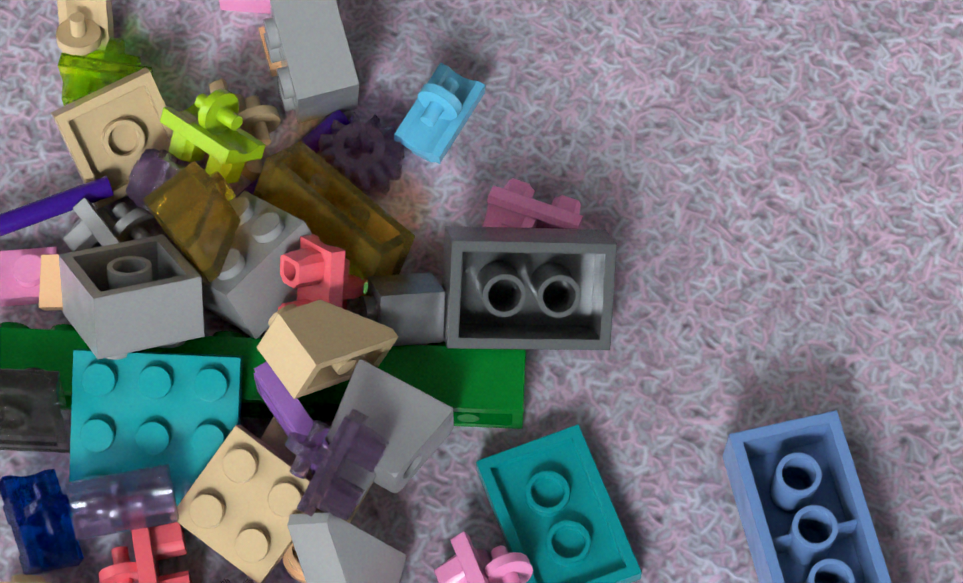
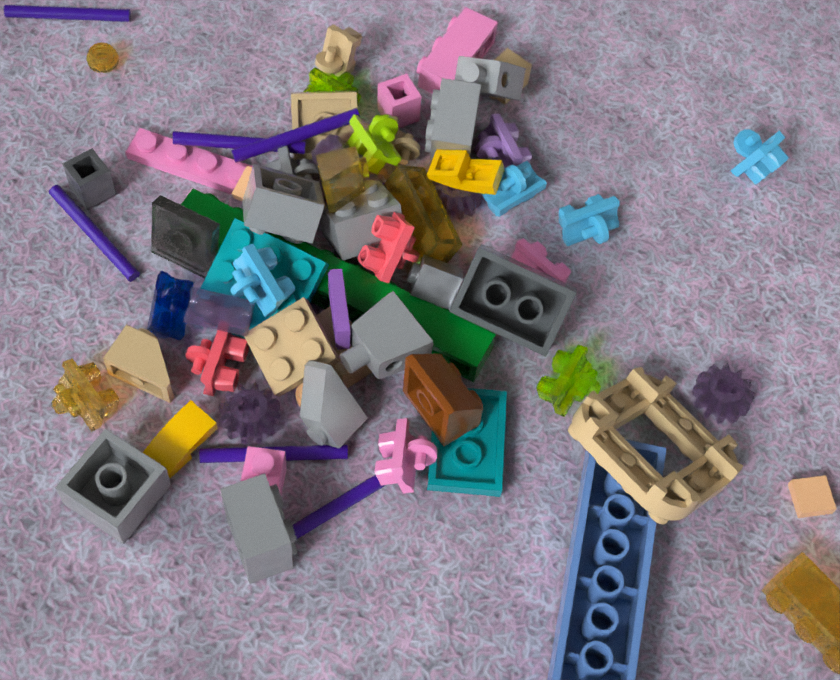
camera: 20 degrees right, 5 degrees down
(88, 177) = (293, 136): none -> dark purple bar
(160, 434) = (257, 282): none -> medium azure hips
(211, 50) = (399, 99): none -> bright pink brick
(321, 345) = (373, 272): tan slope -> none
(351, 442) = (343, 336): clear purple hips -> none
(362, 126) = (460, 172): none -> yellow slope
(389, 56) = (498, 143): none -> lavender hips
(498, 479) = (441, 396): none -> dark orange slope
(572, 116) = (590, 221): none -> medium azure hips
(665, 366) = (574, 383): none -> clear neon green hips
(847, 290) = (731, 405): none -> clear purple gear
(896, 446) = (676, 493): none -> tan plate

